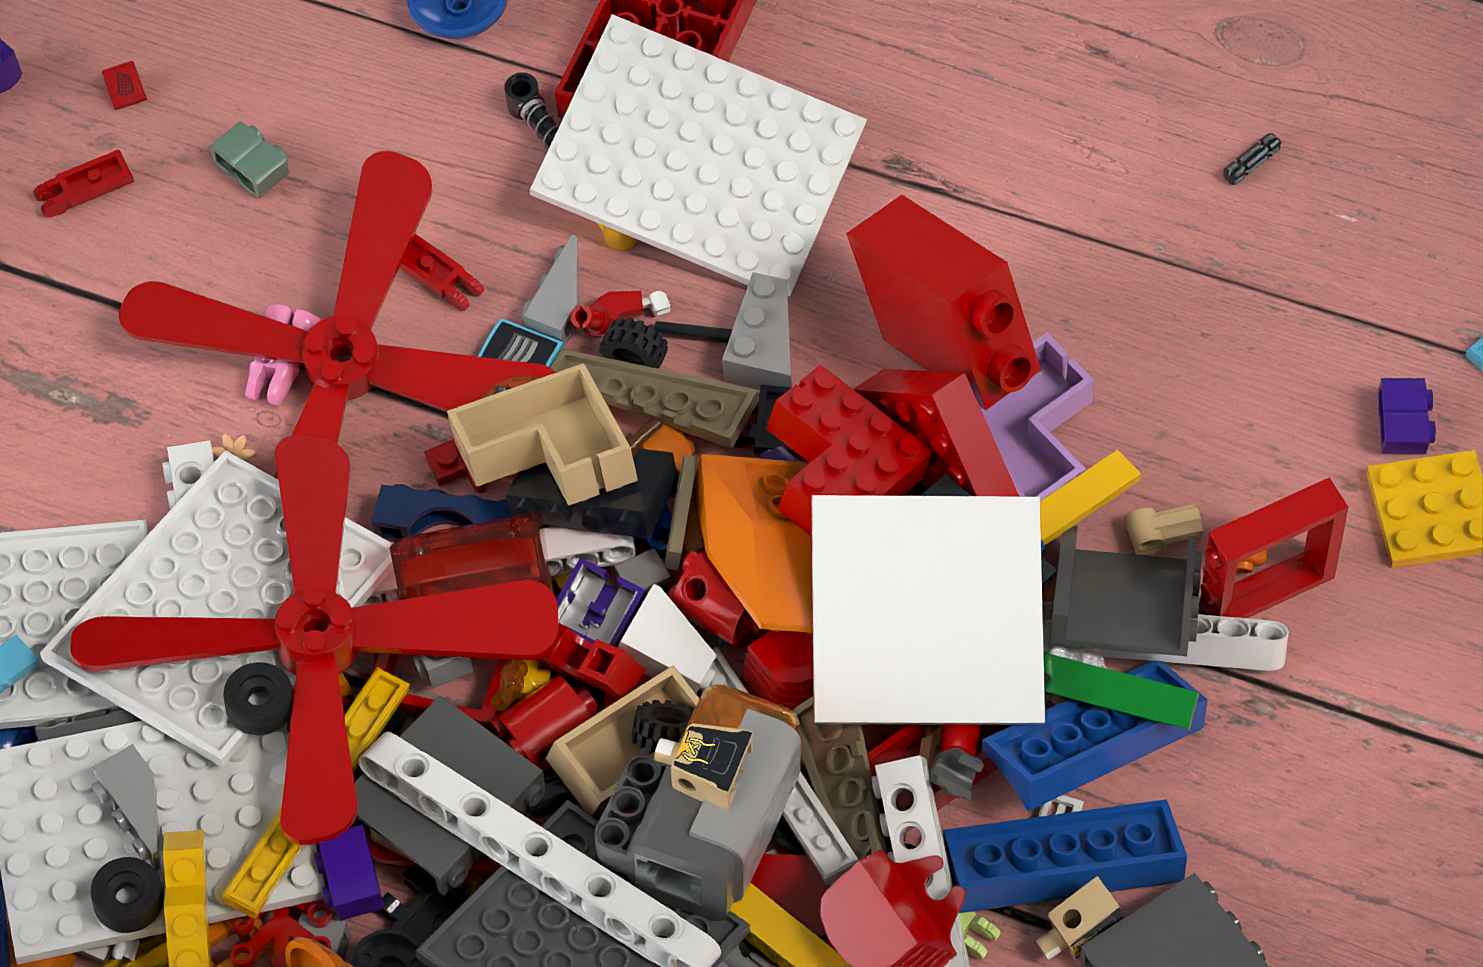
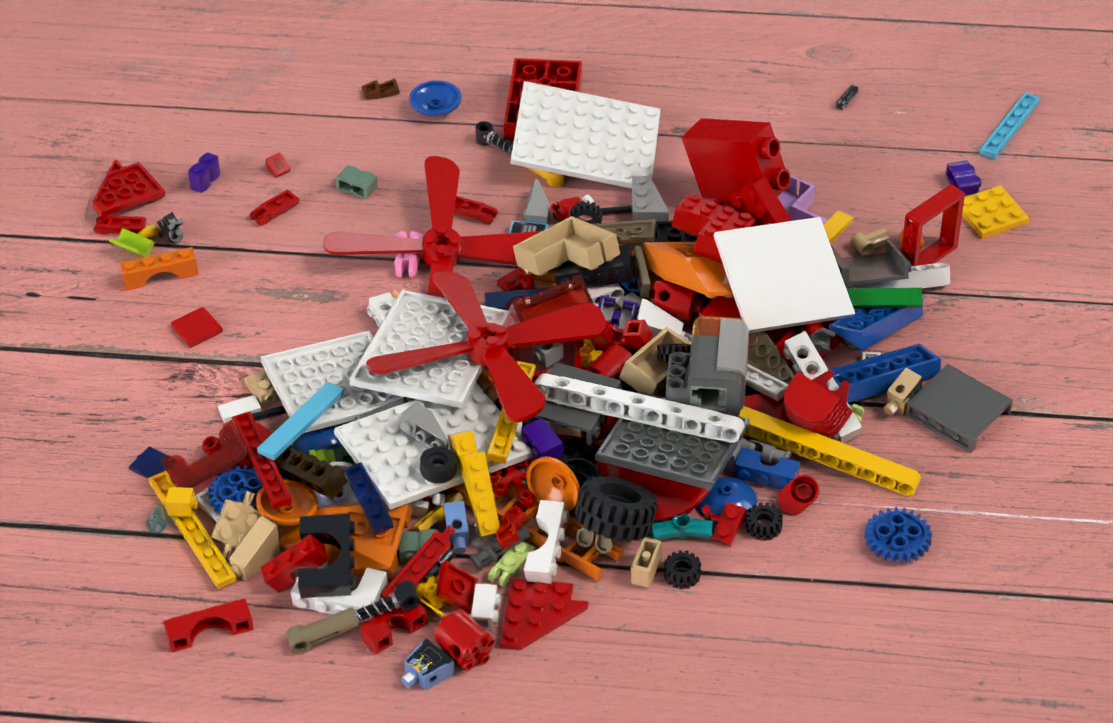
camera: 20 degrees left, 15 degrees down
(258, 718) = (470, 373): black tyre -> none
(706, 761) = (713, 338): torso -> none

